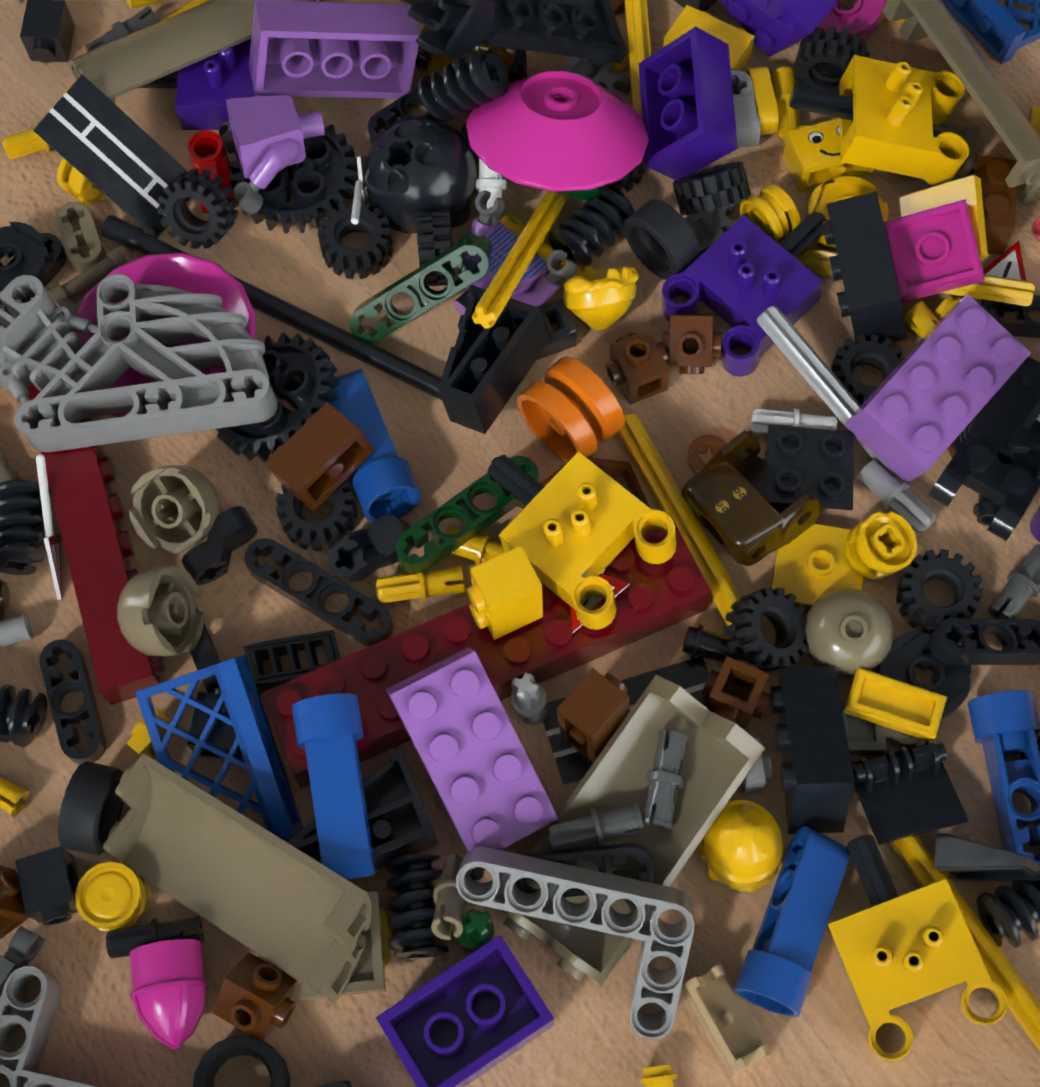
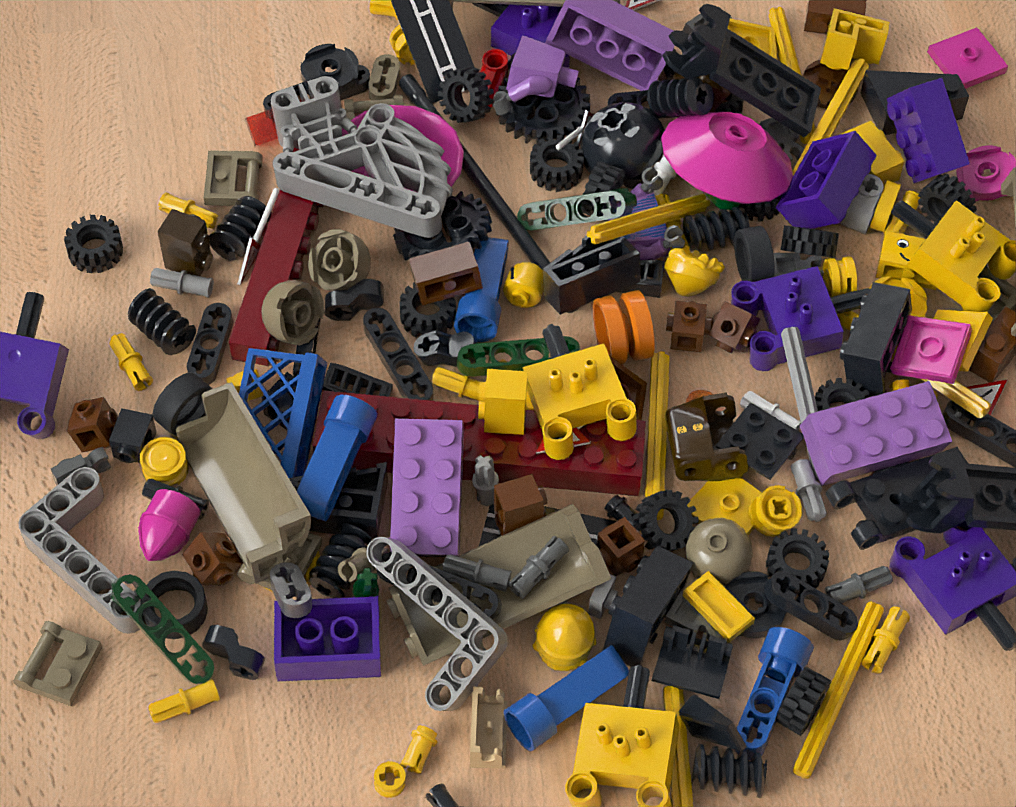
camera: 25 degrees right, 10 degrees down
(382, 1001) = (285, 591): none -> flat silver beam
(414, 415) = (525, 284): none -> yellow head

